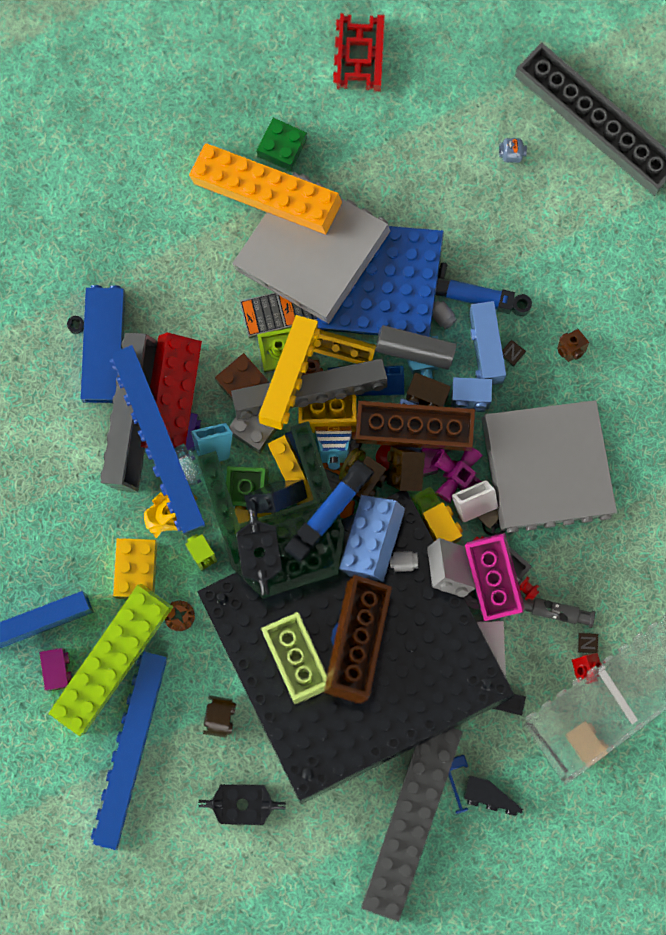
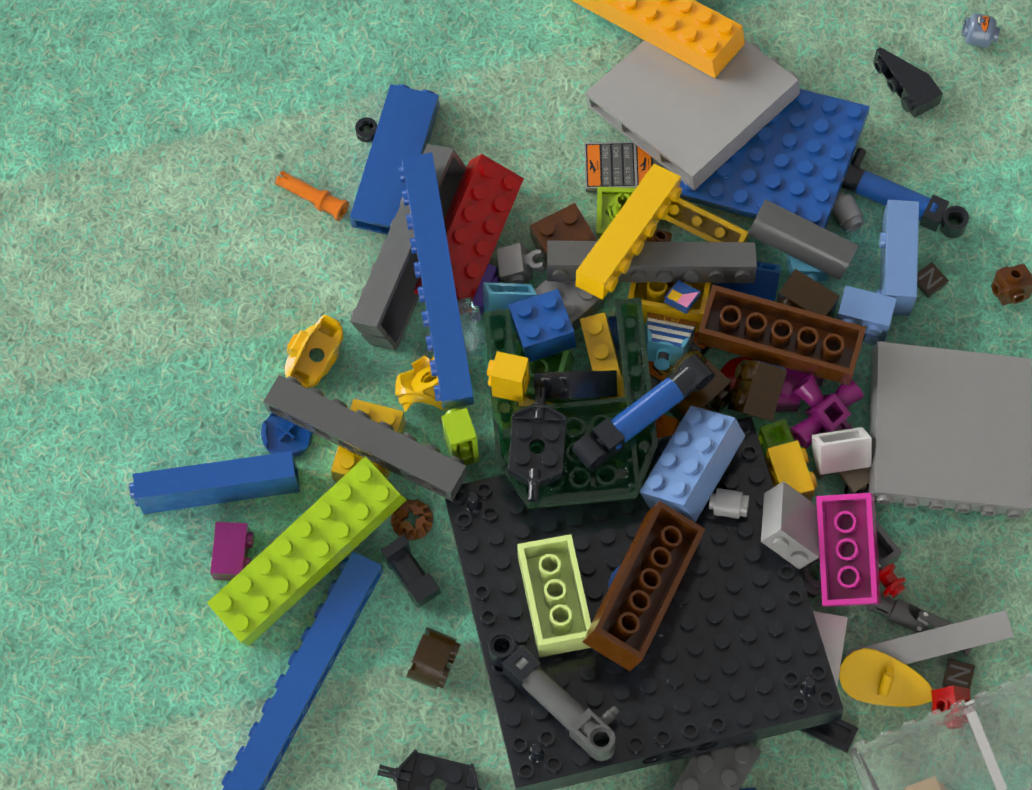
camera: 15 degrees right, 10 degrees down
(55, 387) = (321, 199): none -> orange pin
(73, 571) = (284, 436): none -> blue tile
(81, 492) = (323, 335): none -> yellow piece
(133, 568) = (366, 437): none -> dark grey brick
(188, 657) = (418, 584): none -> black piece
(212, 407) = (517, 263): none -> light grey brick
(227, 506) = (509, 376): none -> yellow brick
(241, 456) = (542, 325): none -> blue brick
(292, 721) = (528, 674): none -> dark grey piece
(338, 411) = (682, 297): none -> tile
(471, 204) = (912, 85): none -> black slope
(535, 658) = (882, 680): none -> yellow shield
(563, 627) = (946, 638): none -> light grey tile

